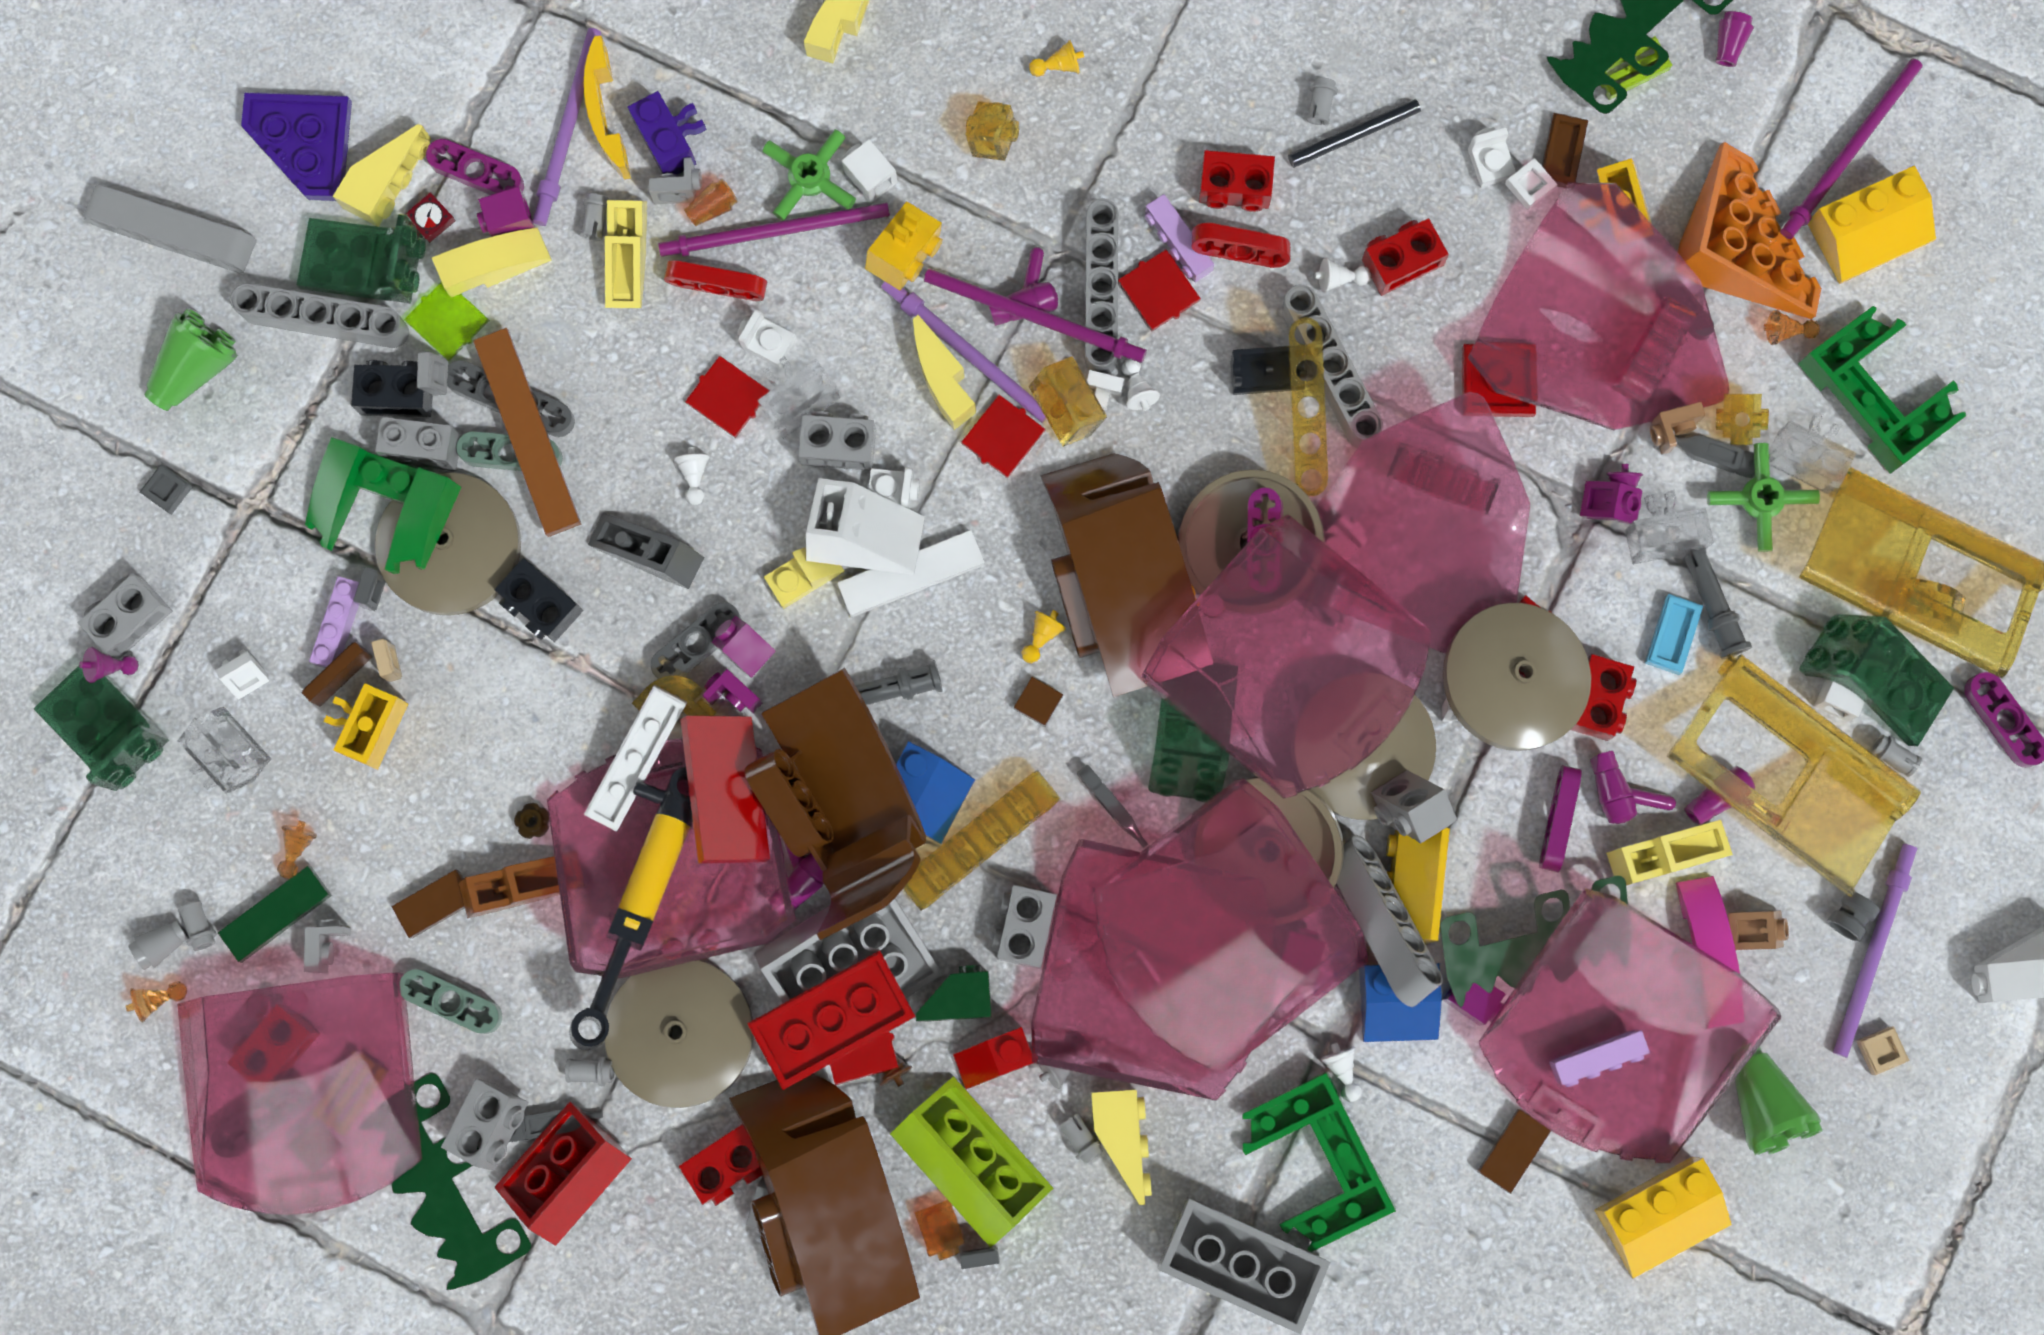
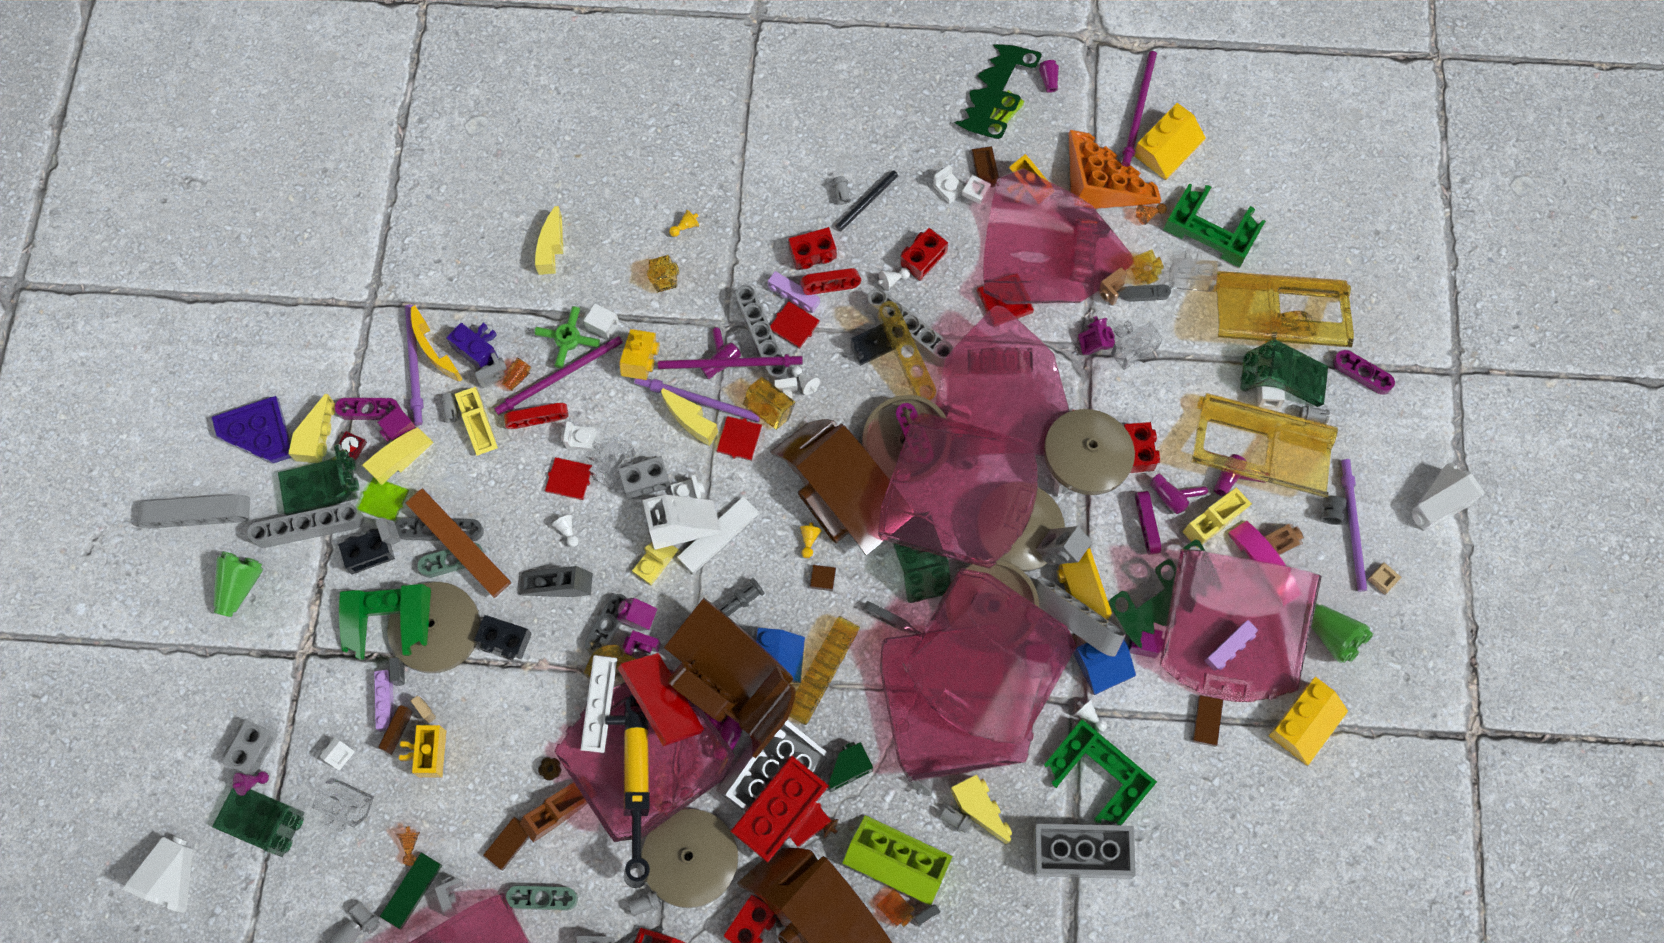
camera: 25 degrees left, 10 degrees down
(166, 489) = (247, 664): dark grey tile -> none
(418, 443) = (394, 574): light grey brick -> none
(993, 1058) = (885, 792): red slope -> none
(1034, 928) = (876, 708): light grey brick -> none
(1673, 634) = (1163, 398): medium azure tile -> none
(1722, 620) = (1185, 378): dark grey pin -> none
(1756, 506) = (1176, 311): bright green bar -> none

